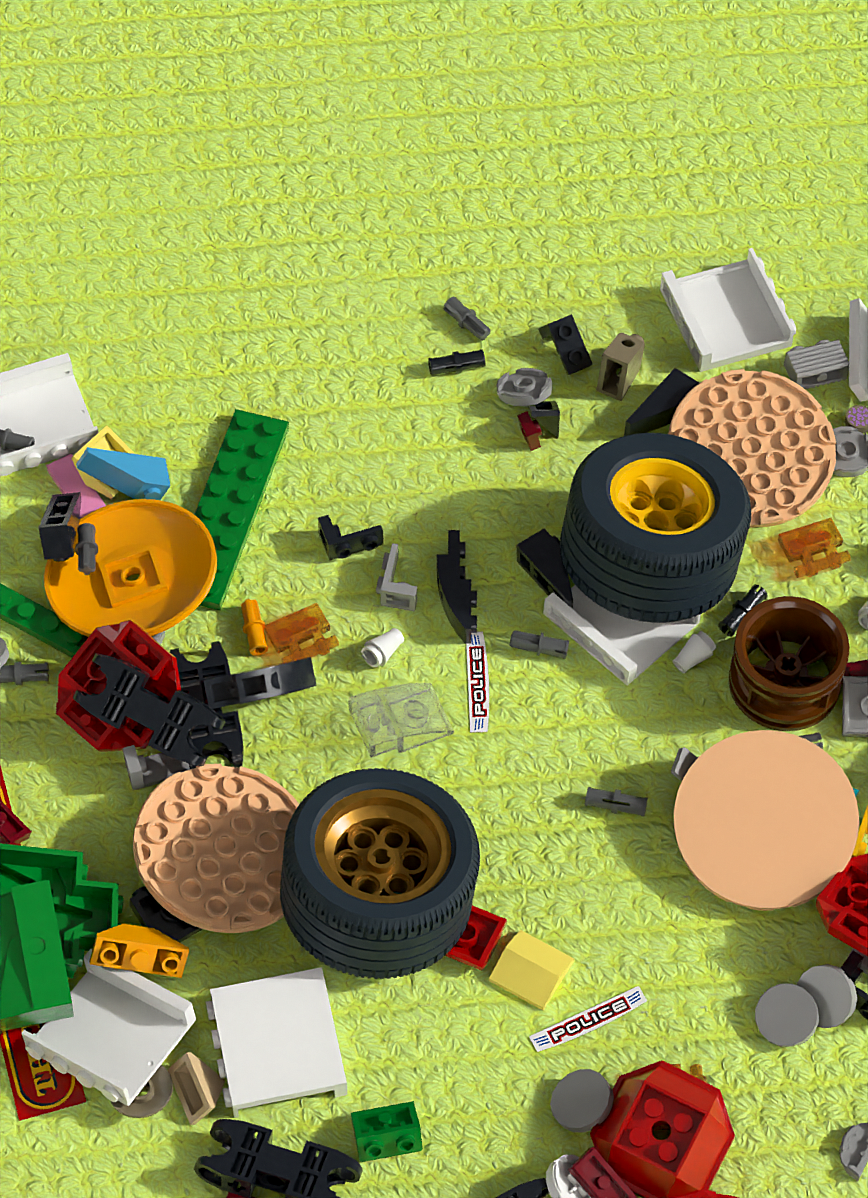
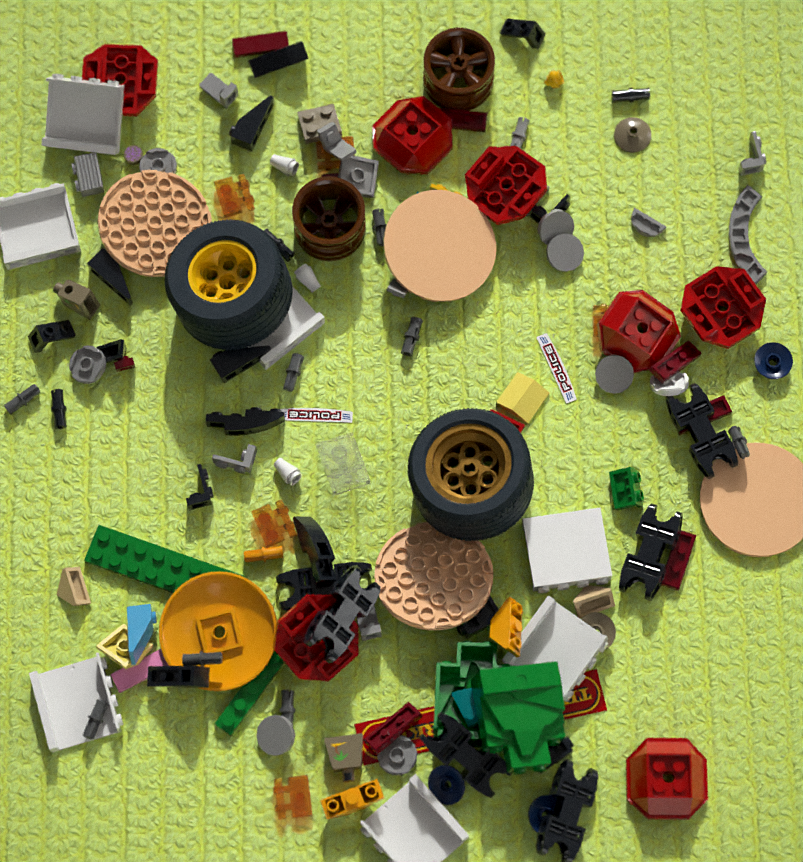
camera: 85 degrees left, 15 degrees up
(196, 402) = (72, 587): none -> tan slope

